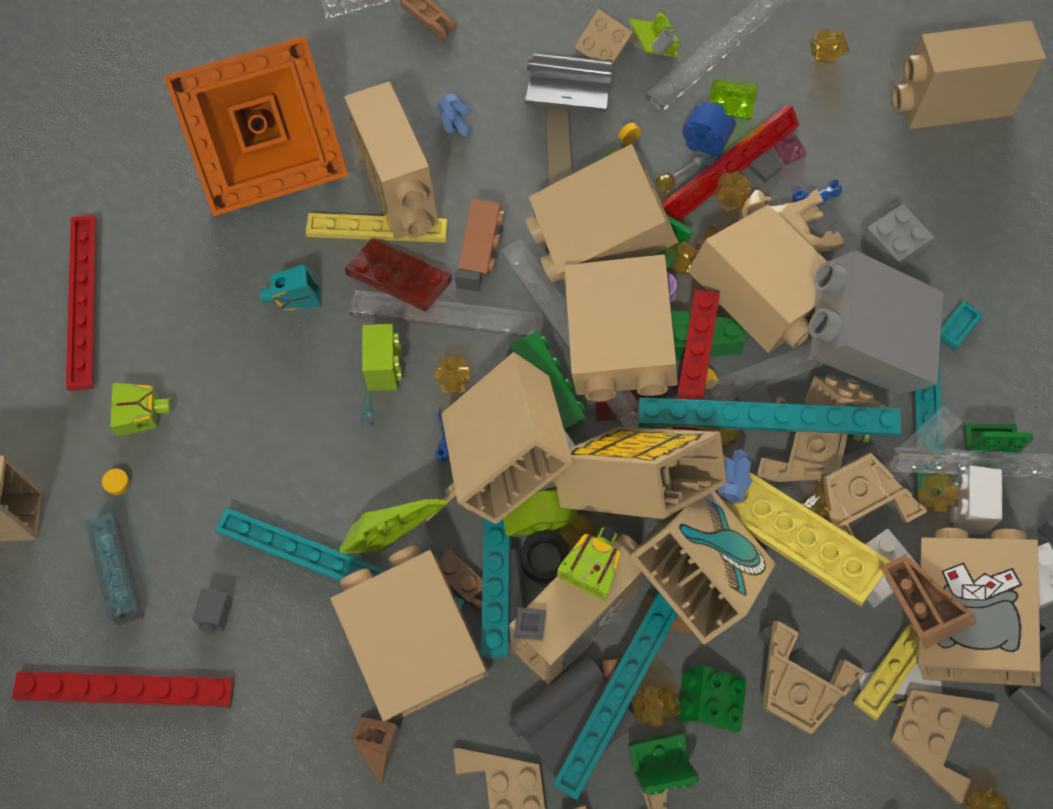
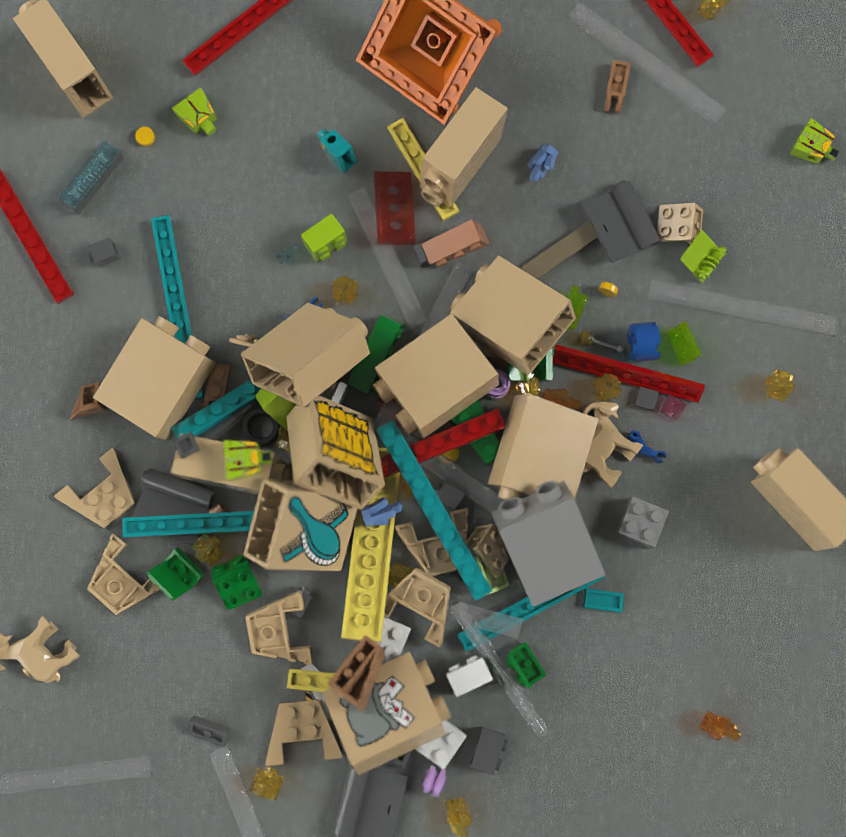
camera: 60 degrees right, 15 degrees up
(384, 527) = (212, 316): lime wedge -> none
(663, 41) = (698, 266): light grey hinge -> none
(930, 485) = (457, 647): clear yellow brick -> none

